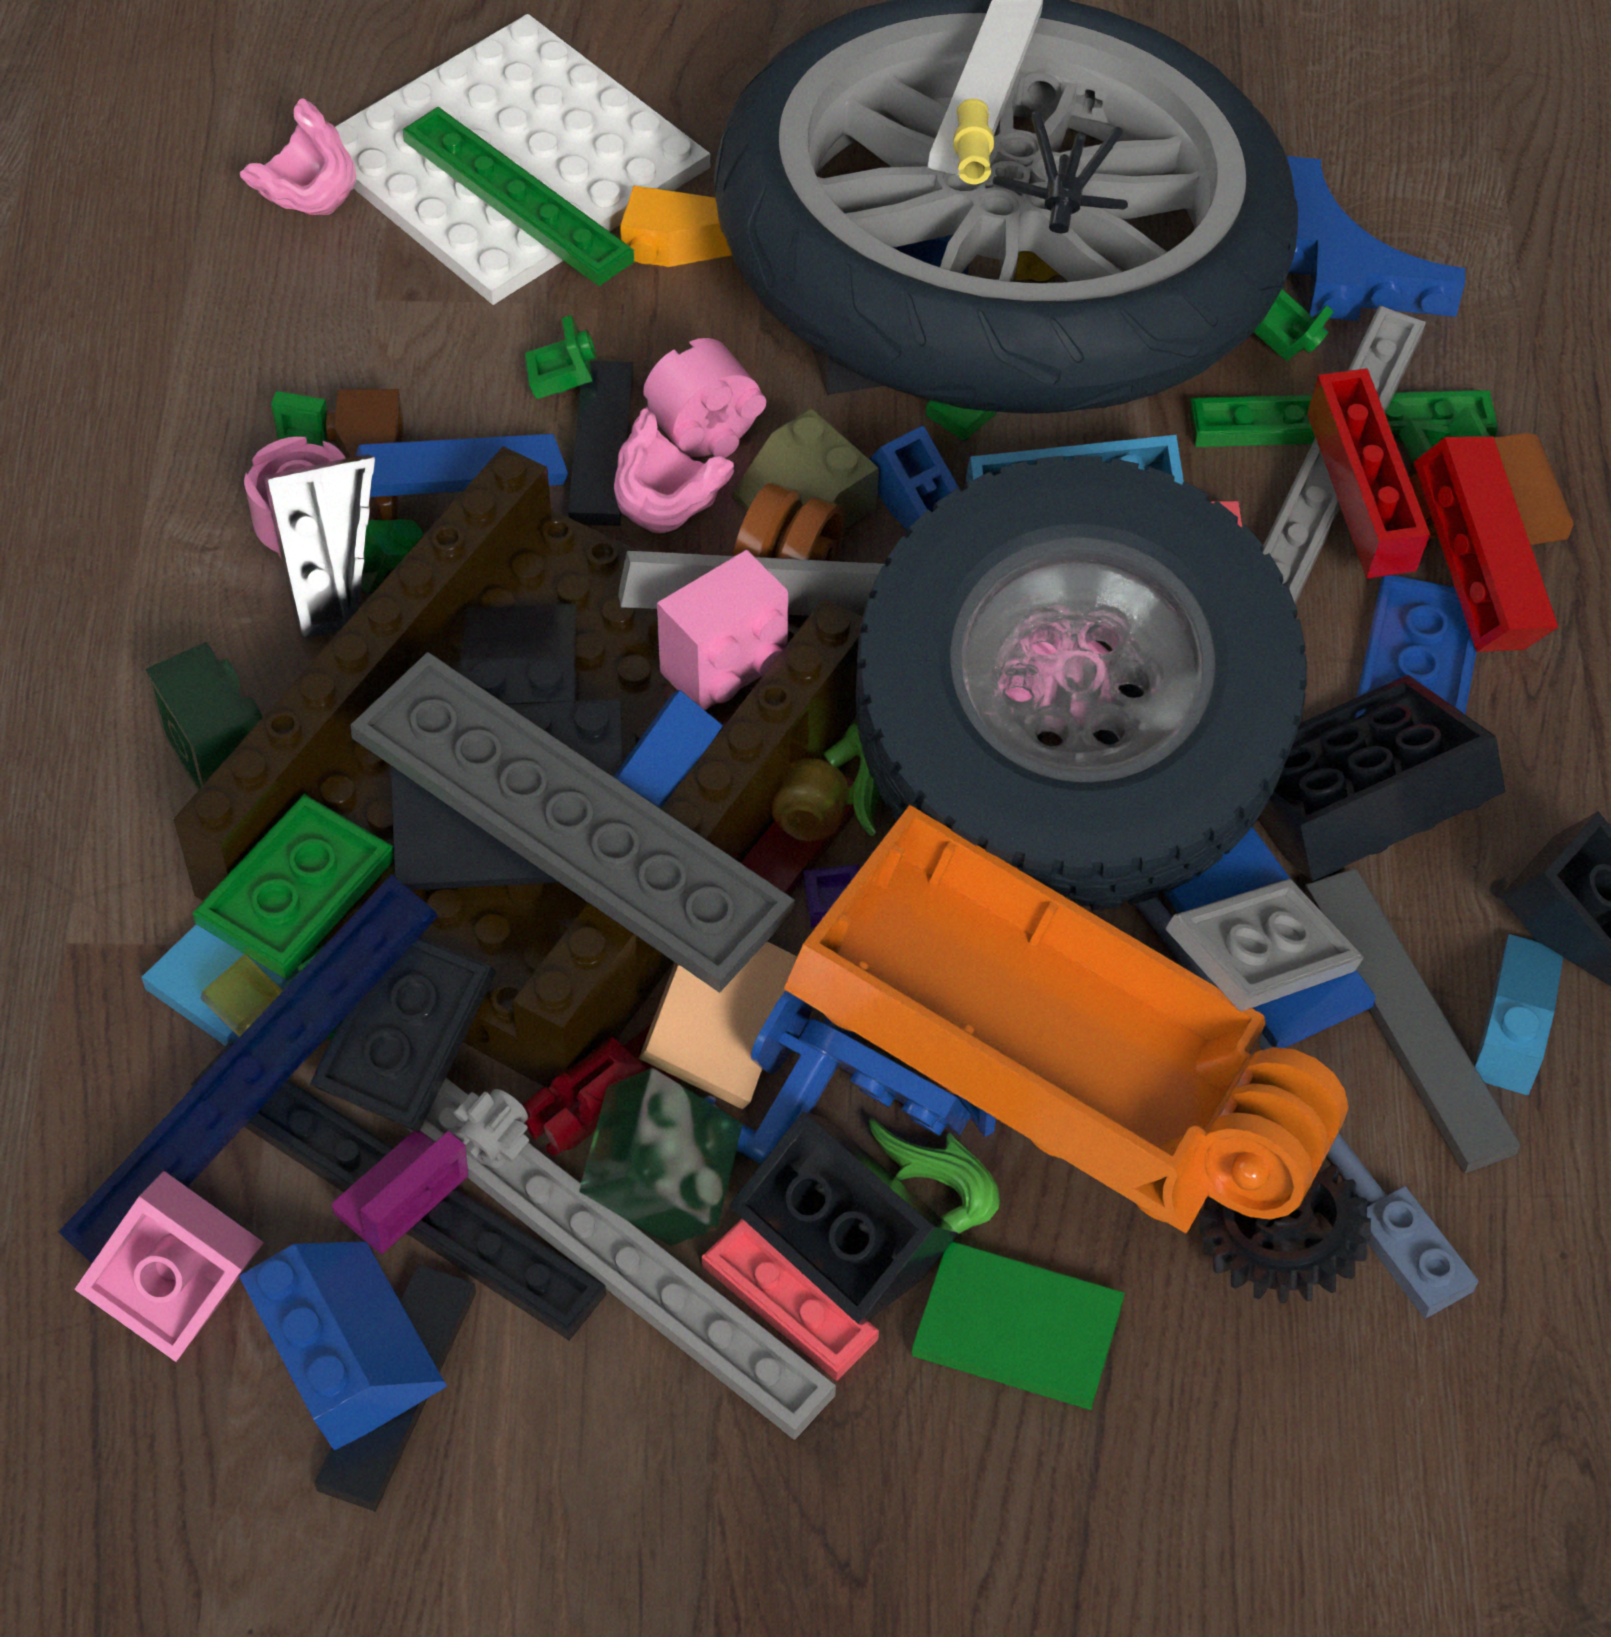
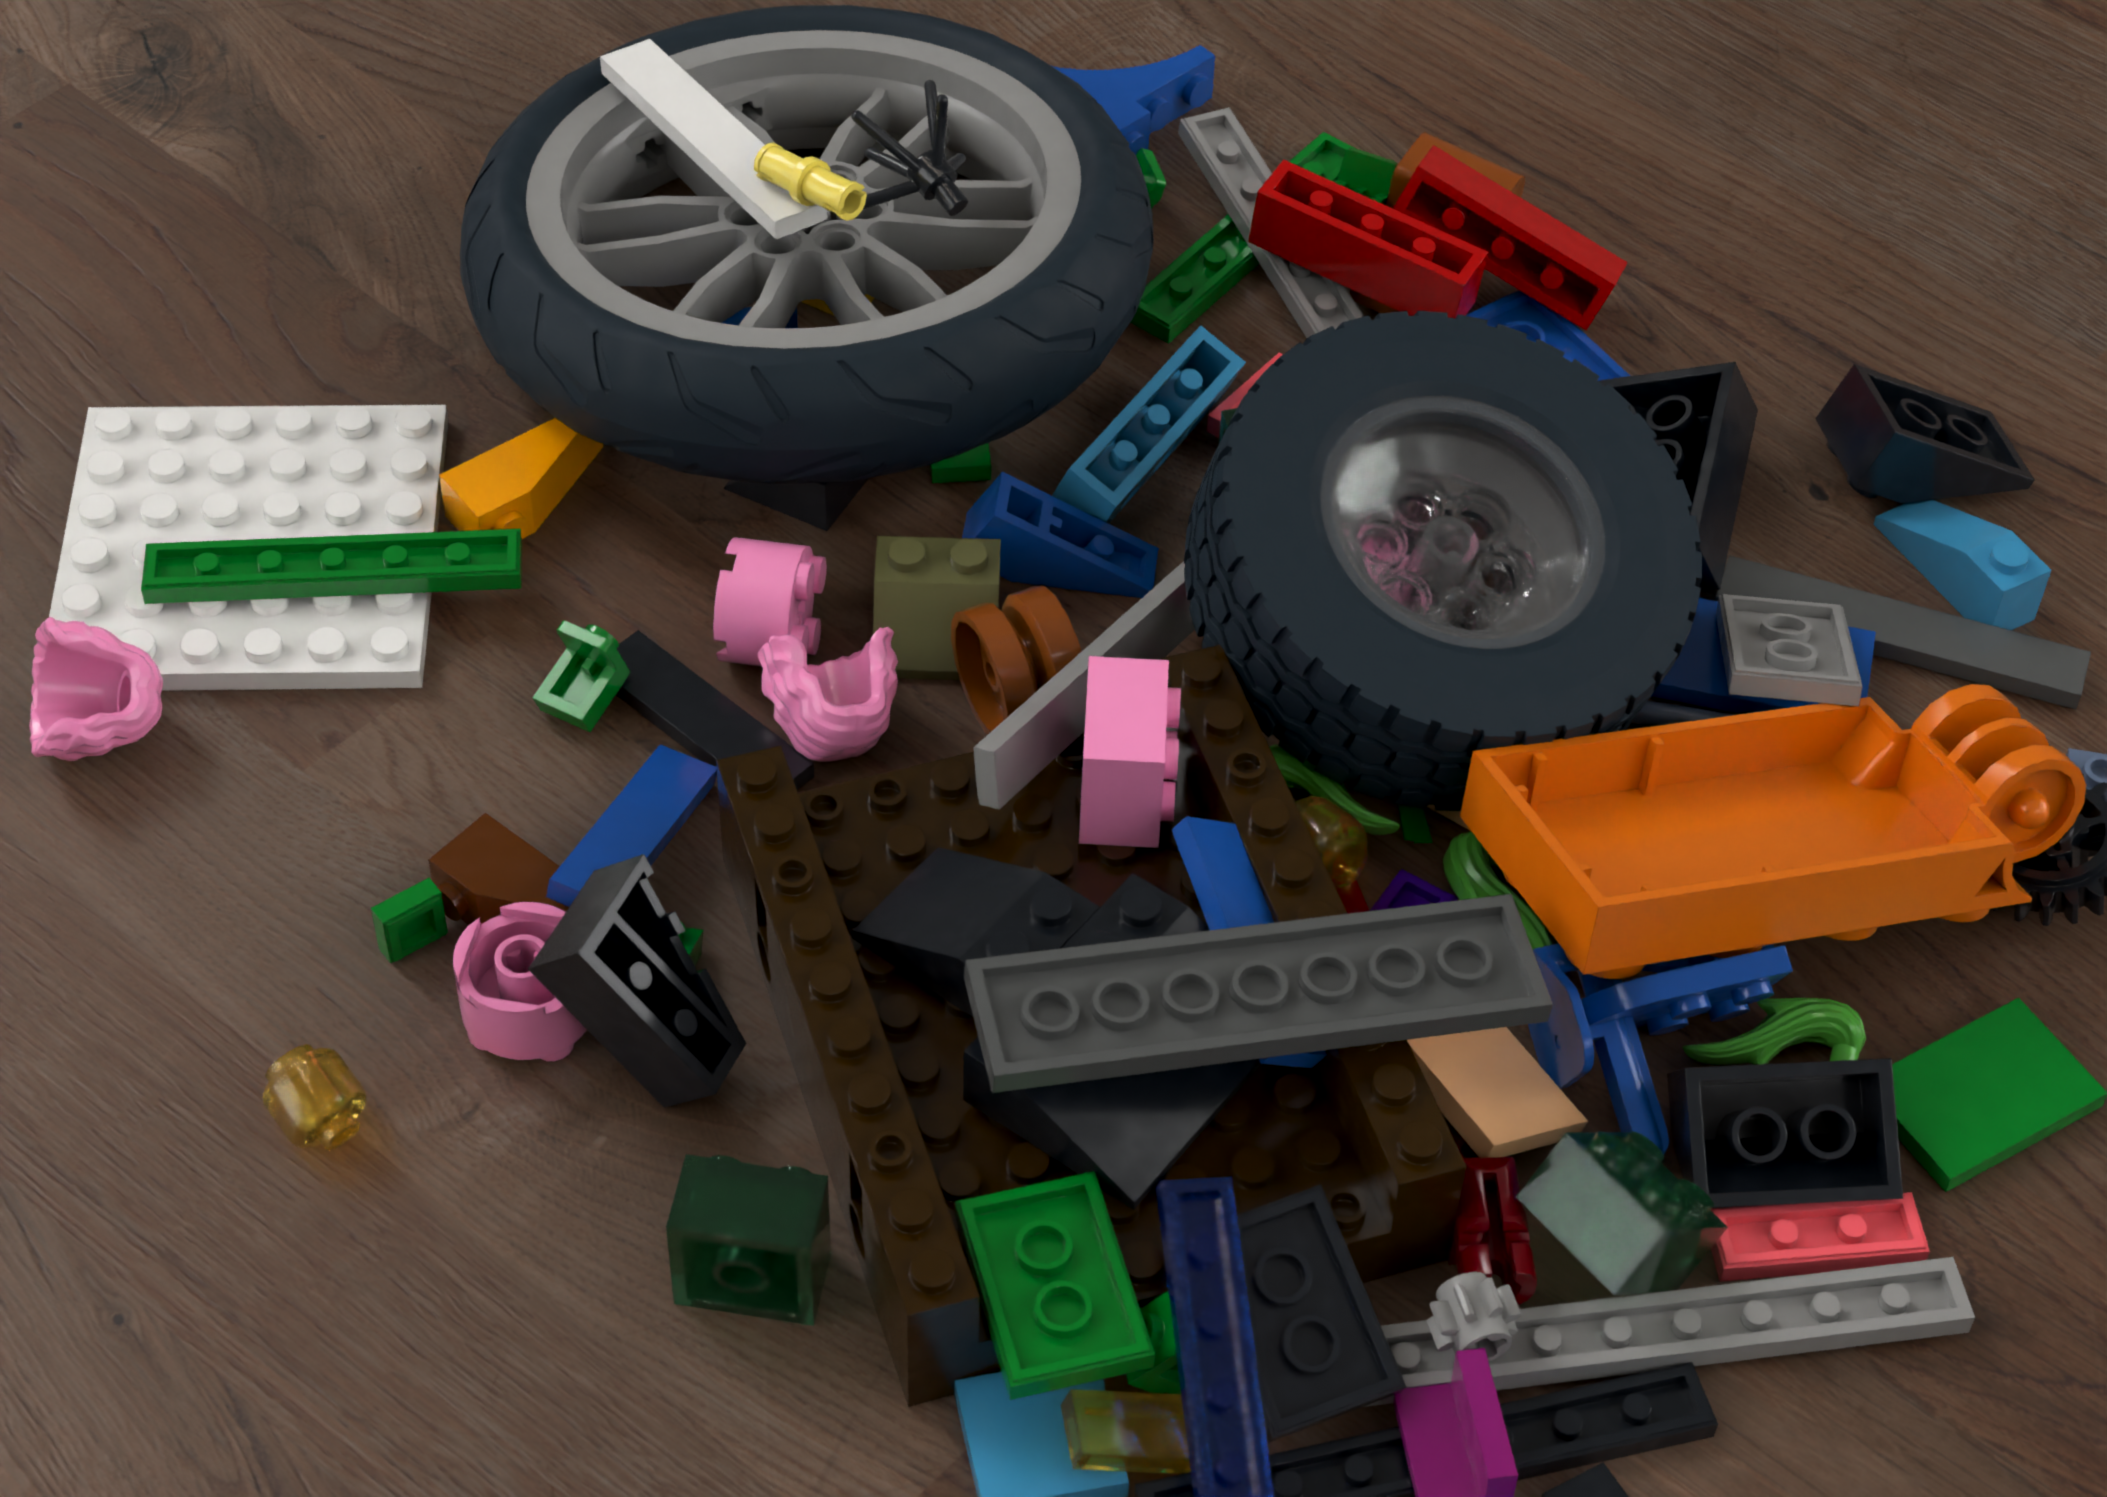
camera: 50 degrees left, 5 degrees down
(133, 469) = (314, 1097): none -> clear yellow head

